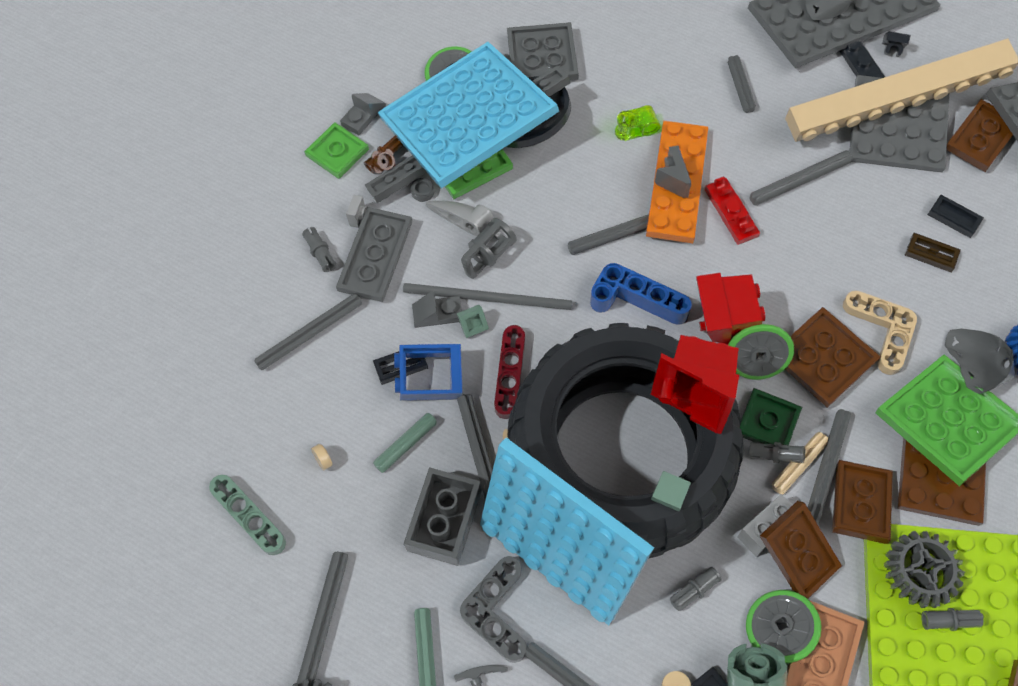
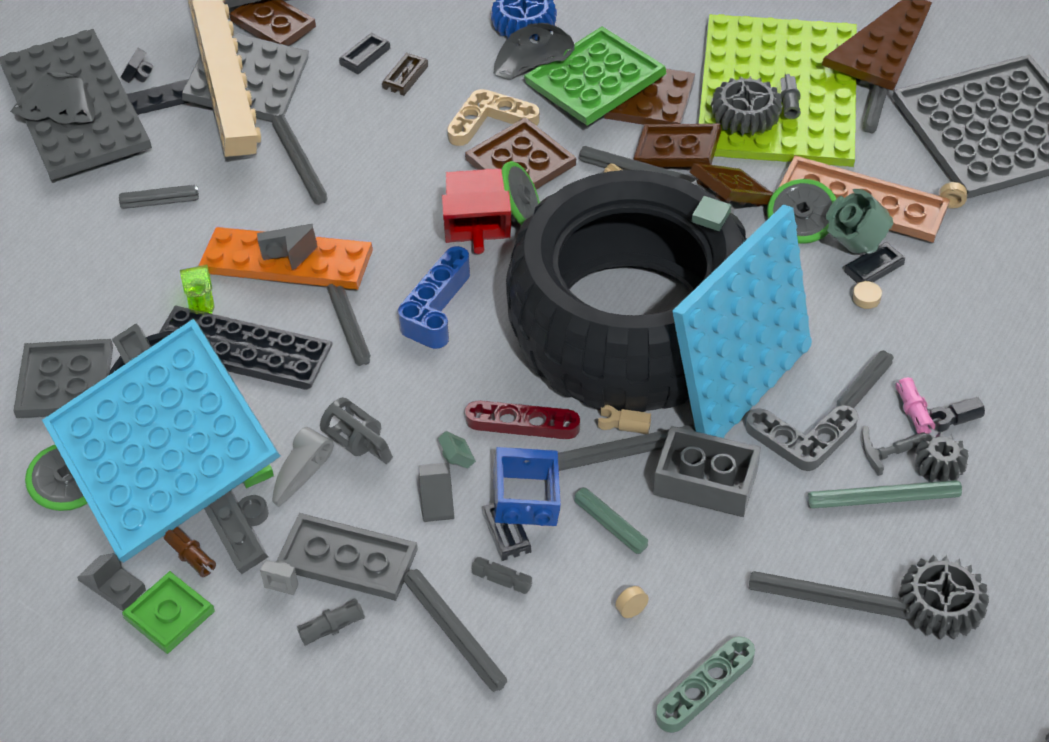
camera: 90 degrees left, 15 degrees down
(355, 362) = (501, 575): none -> dark grey axle
(389, 159) = (208, 542): plate -> none
(488, 296) = (418, 445): dark grey piece -> none
(580, 163) = (257, 349): none -> black plate
(699, 381) = (605, 168): red piece -> none
(732, 210) = (336, 216): red plate -> none

